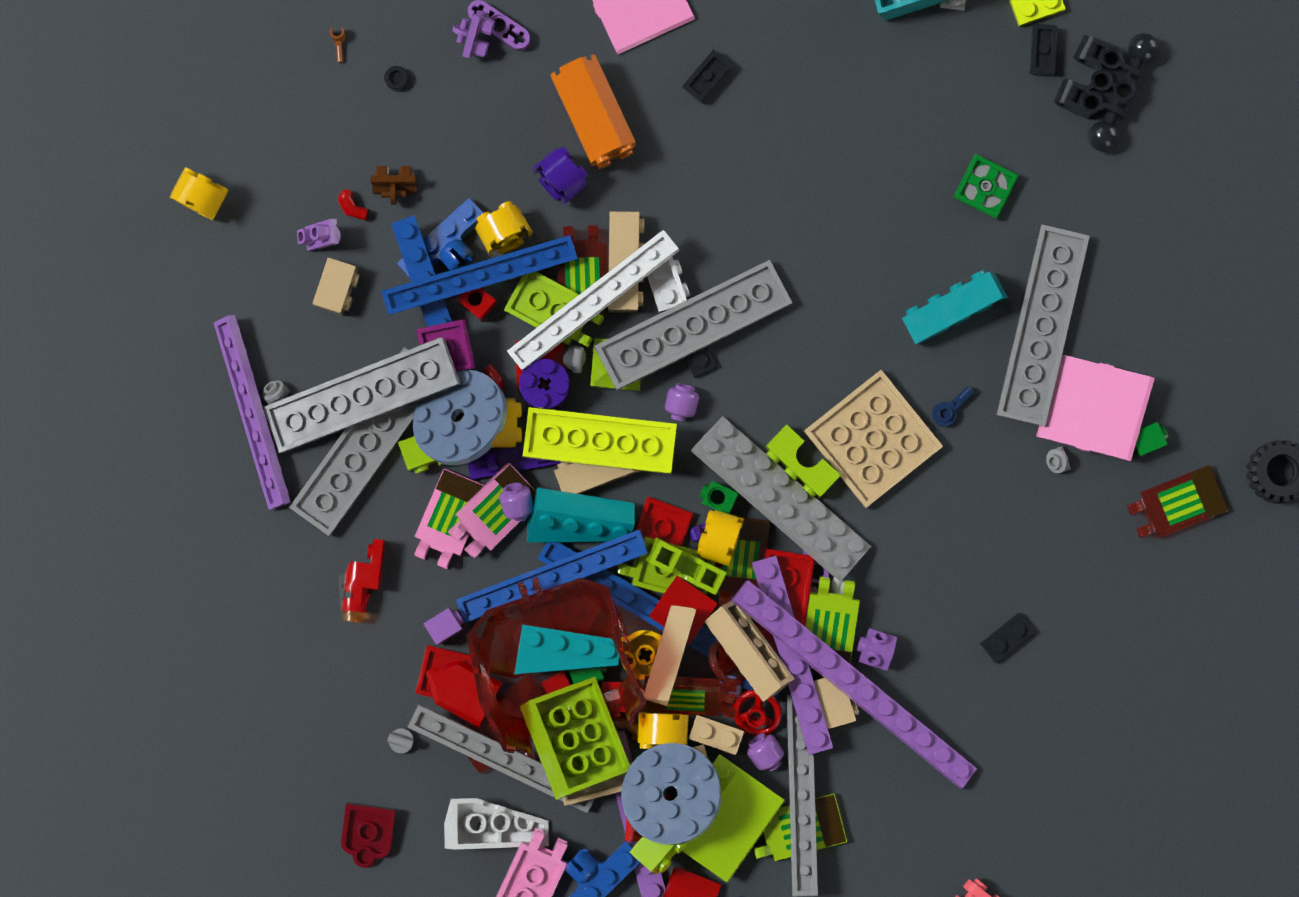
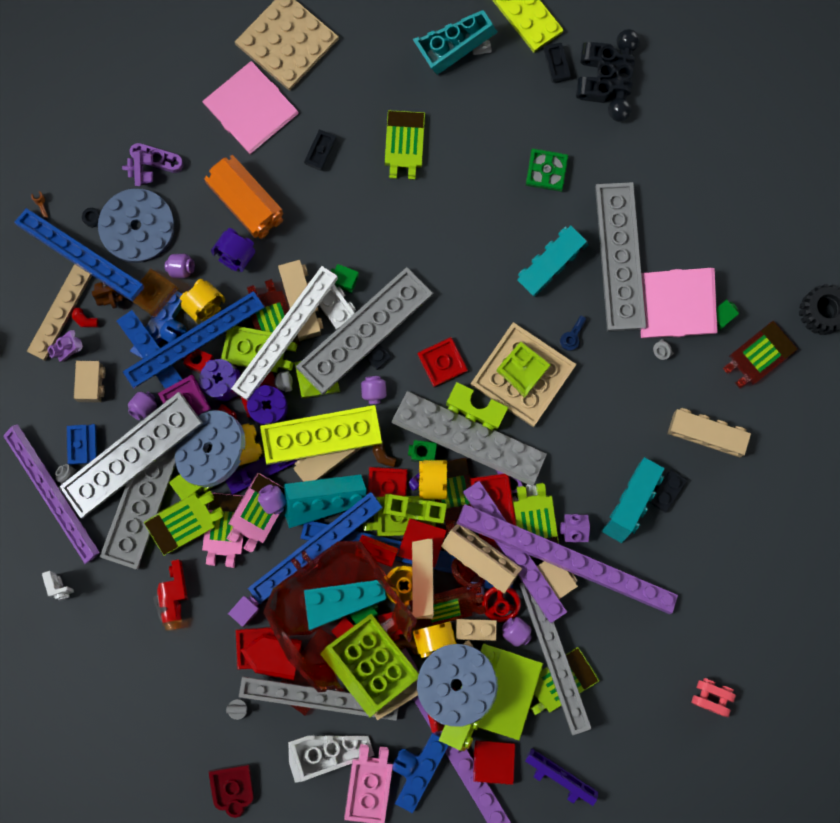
camera: 30 degrees left, 5 degrees down
(224, 524) = (53, 586): none -> white bracket
(305, 362) = (81, 444): none -> blue plate
(330, 181) = (59, 312): none -> tan plate
(368, 124) = (79, 254): none -> blue plate
(392, 336) = (142, 405): none -> medium lavender head
(401, 495) = (182, 522): none -> tile
(444, 80) = (139, 244): none -> sand blue plate
(445, 198) = (155, 294): none -> clear orange tile
(488, 174) = (179, 266): none -> medium lavender head
(488, 325) = (211, 379): none -> dark purple brick
(629, 604) = (380, 551): none -> red plate
(666, 488) = (381, 457): none -> reddish brown arm
(690, 250) = (346, 278): none -> green brick
(777, 392) = (442, 362): none -> red tile
(816, 96) = (404, 141): none -> tile
(874, 432) = (523, 368): none -> lime plate
(960, 636) = (634, 500): none -> teal wedge
(1081, 582) = (709, 433): none -> tan brick

